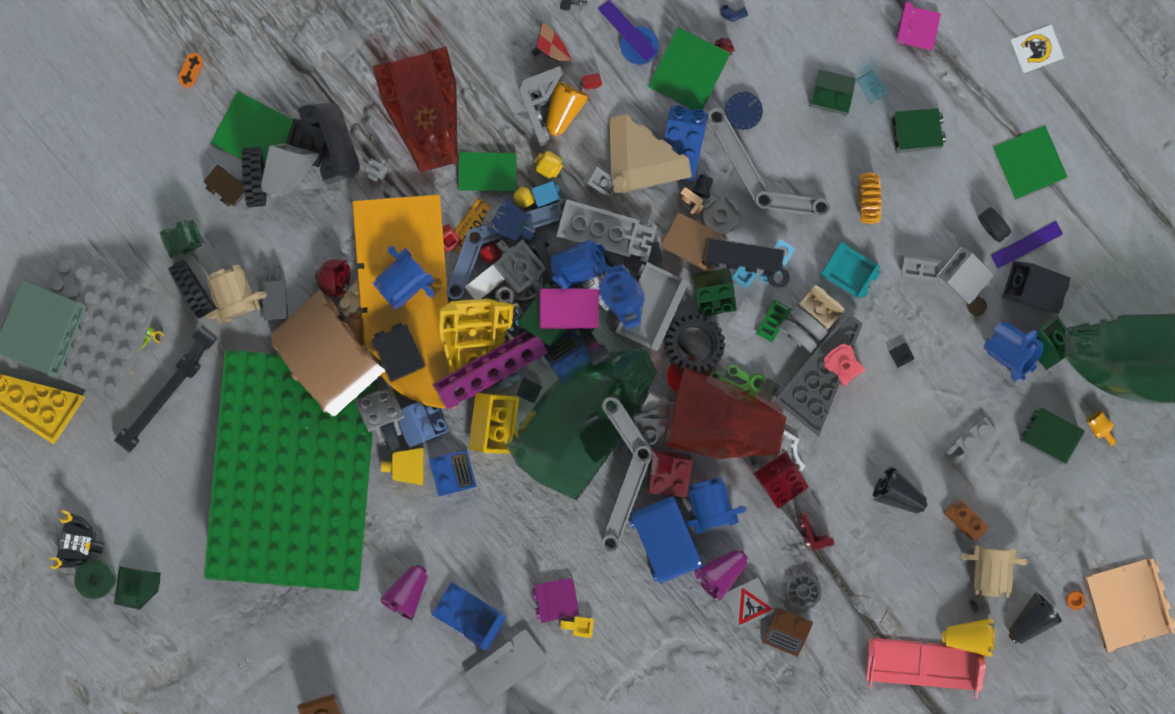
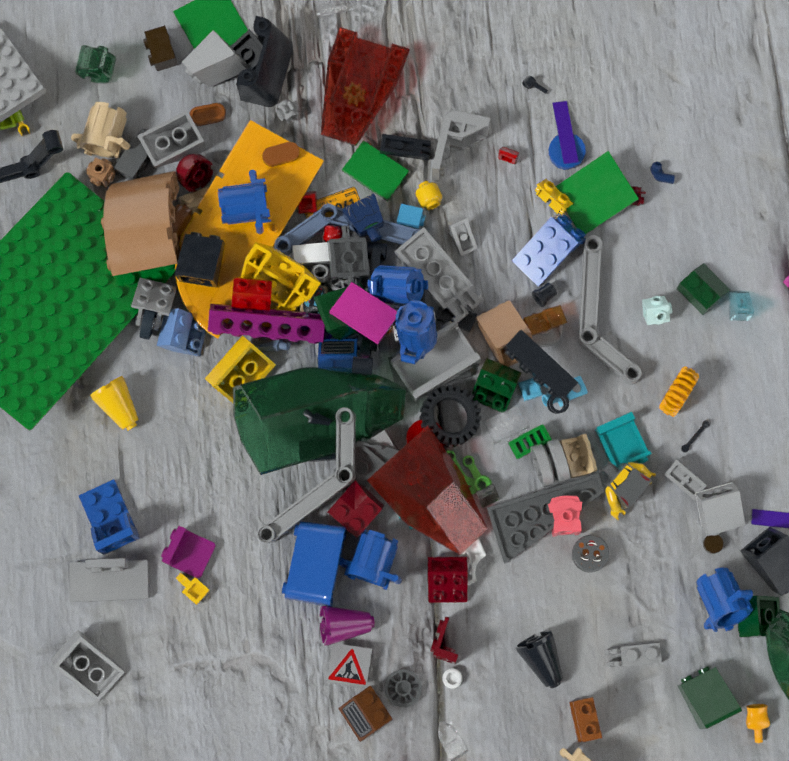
camera: 40 degrees right, 10 degrees down
(191, 289) = (73, 104): black tyre -> none
(253, 170) = (182, 45): black tyre -> none
(262, 330) = (101, 172): none -> medium nougat brick
(297, 263) = (172, 140): none -> light grey slope
(307, 217) = (208, 114): none -> dark orange tile
(400, 214) = (281, 154): none -> dark orange tile
(406, 466) = (145, 360): yellow torso -> none
(406, 592) = (70, 461): magenta cone -> none
(409, 518) = (117, 403): none -> yellow cone
(452, 473) = (177, 390): blue slope -> none
(463, 353) = (251, 294): none -> red bracket
(498, 134) = (405, 147): none -> black hinge
(523, 197) = (390, 208): yellow piece -> none
(529, 390) = (287, 363): black tile -> none
(551, 45) = (495, 104): shield -> none
(564, 107) = (471, 157): light orange cone -> none
(641, 159) = (508, 238): tan slope -> none
(646, 93) = (547, 190): none -> yellow hinge
(689, 198) = (527, 296): light nougat bracket -> none
(719, 209) = (546, 320): none -> clear orange slope
(743, 110) = (619, 256): dark blue tile -> none
(806, 139) = (656, 310): none -> light aqua brick
(837, 557) = (452, 678): none -> white tile
(876, 307) = (625, 485): none -> torso
(883, 381) = (590, 553): none -> dark grey head
(901, 355) = (620, 542): black tile -> none
(904, 240) = (685, 448): none -> black hinge
(918, 130) = (756, 362): dark green slope -> none
(994, 224) = (773, 483): black tyre -> none

